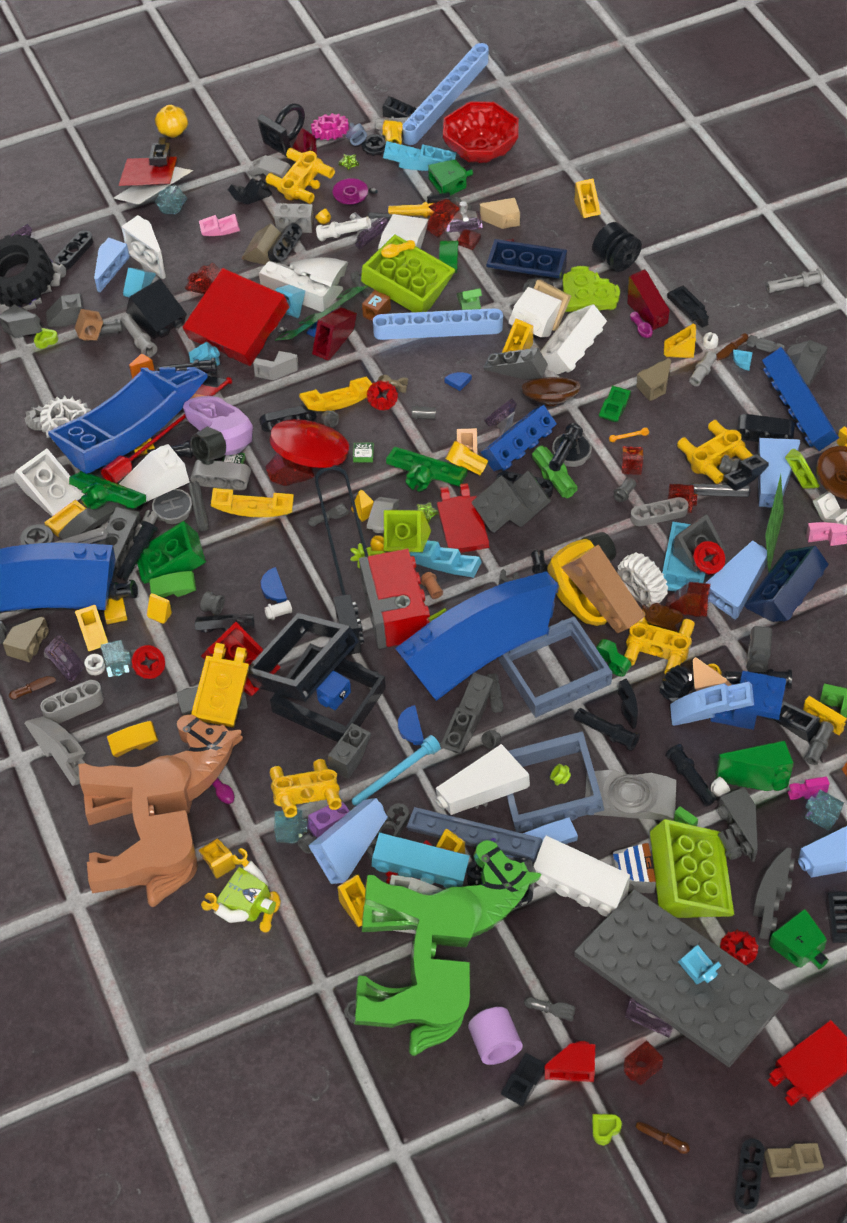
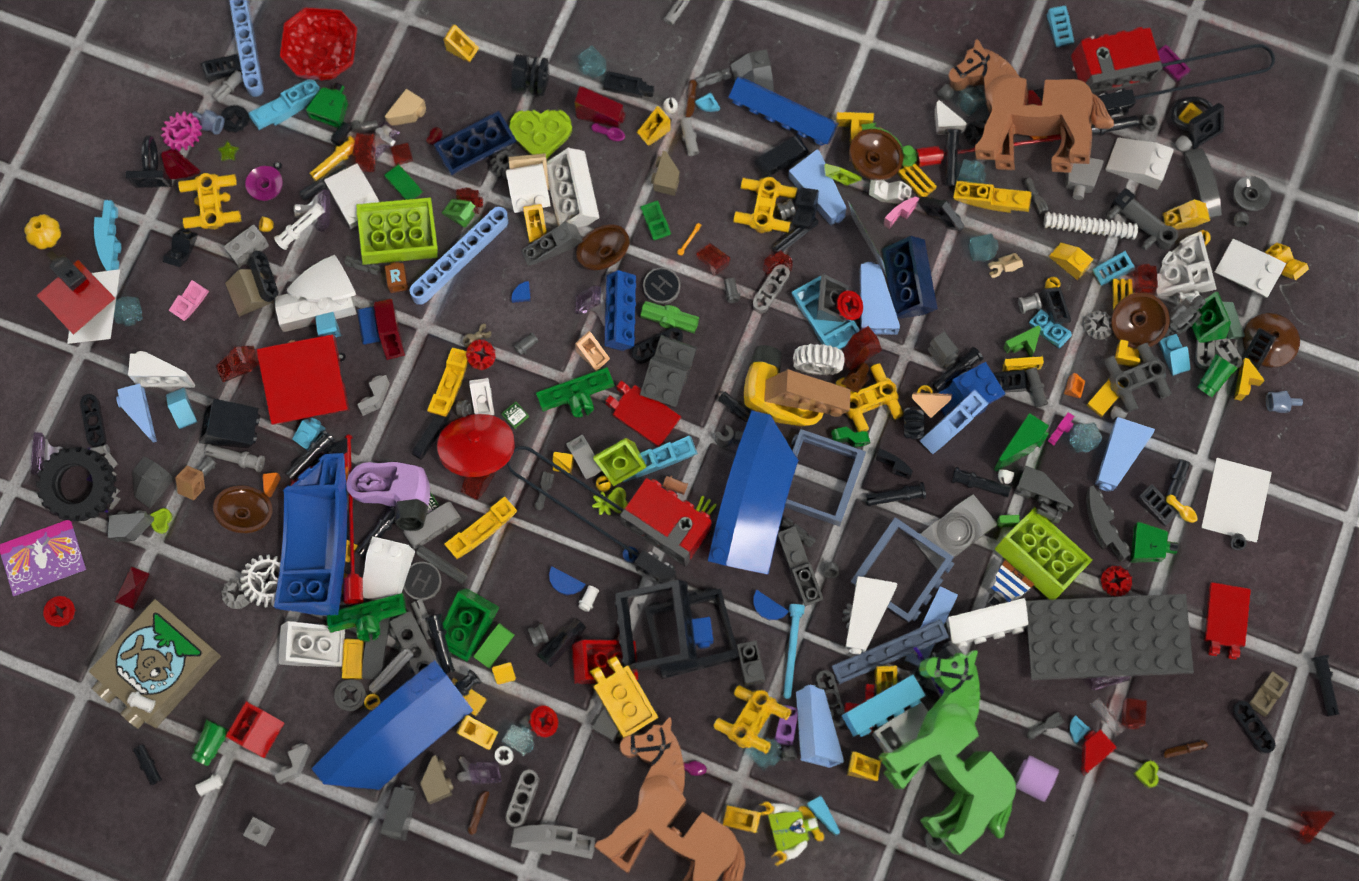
camera: 45 degrees left, 20 degrees up
(102, 365) = (242, 509): none -> reddish brown dish
(132, 737) = (594, 787): yellow slope -> none
(208, 151) = (104, 235): none -> medium azure slope
(268, 165) = (172, 212): light grey slope -> none
(285, 909) = (822, 812): none -> medium azure slope
(293, 333) = (366, 324): green piece -> none
(350, 419) = (482, 396): none -> white slope
(392, 131) = (240, 96): yellow piece -> none
(393, 250) = (371, 221): yellow piece -> none
(427, 510) = (609, 427): clear neon green piece -> none
(462, 456) = (596, 361): yellow piece -> none
(489, 295) = (473, 196): none -> clear red bracket
(524, 1080) = (1074, 788): black slope -> none
(557, 460) = (660, 285): black pin -> none
(560, 774) = (912, 563): lime plate -> none
(577, 1033) = (1077, 729): none -> medium azure tile
(615, 1046) = (1107, 716): none -> clear pin
(676, 273) = (592, 62): none -> clear light blue brick
(699, 966) = (1123, 624): medium azure bracket -> none

